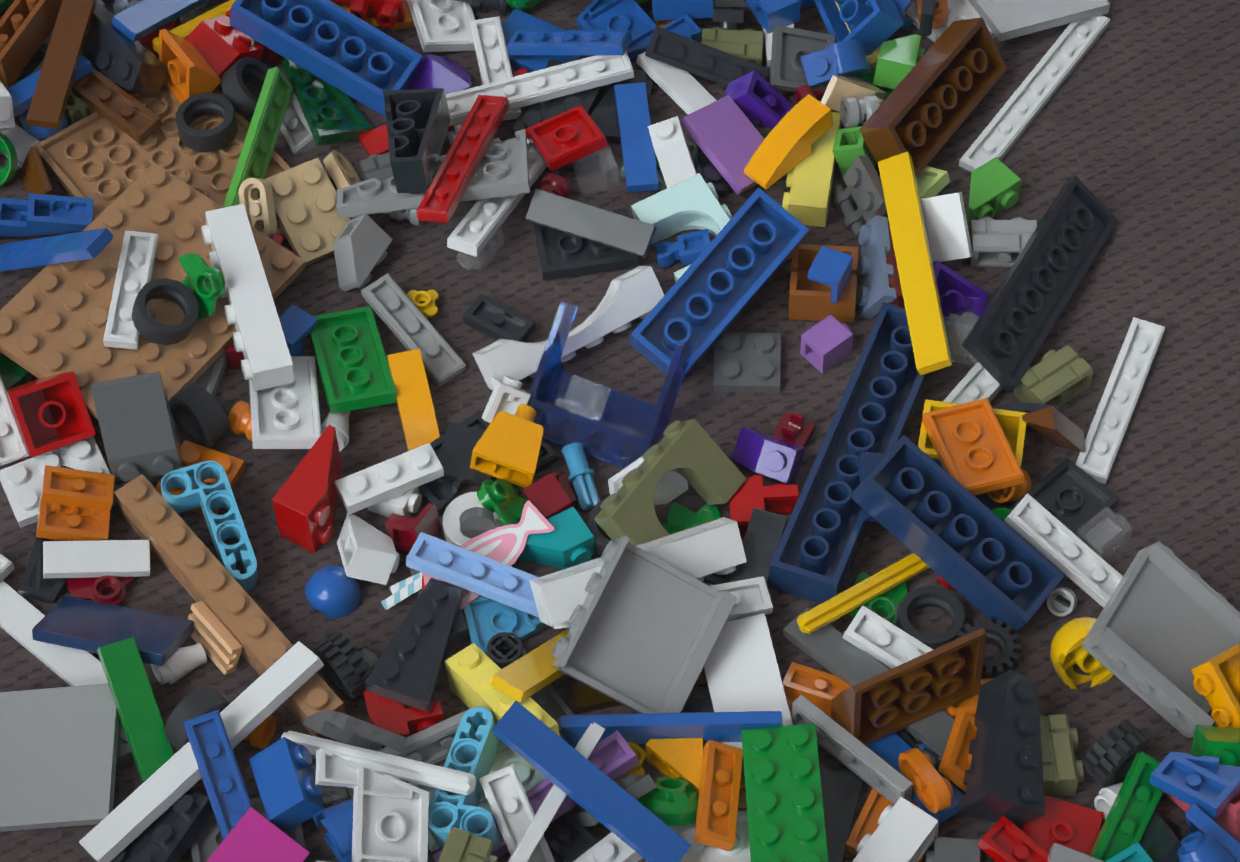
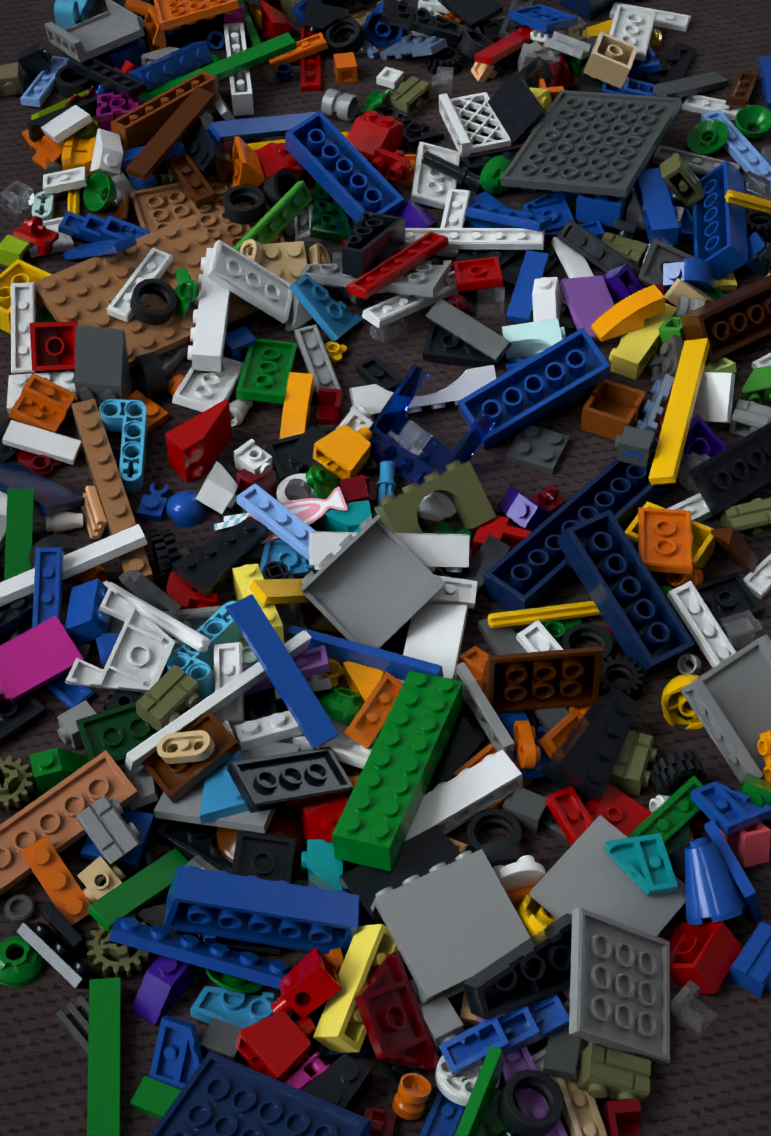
camera: 20 degrees right, 5 degrees down
(281, 241) = (250, 281): none -> white tile
(287, 599) = (154, 505): none -> blue plate
(389, 478) = (252, 446): white plate -> none
(391, 250) = (328, 313): none -> dark azure wing
(456, 386) = (330, 406): none -> dark red panel
(826, 343) = (597, 450): medium lavender brick -> none
(832, 269) = (618, 398): blue panel -> none
(881, 329) = (634, 446): none -> dark grey brick
(897, 60) = (732, 281): bright green slope -> none

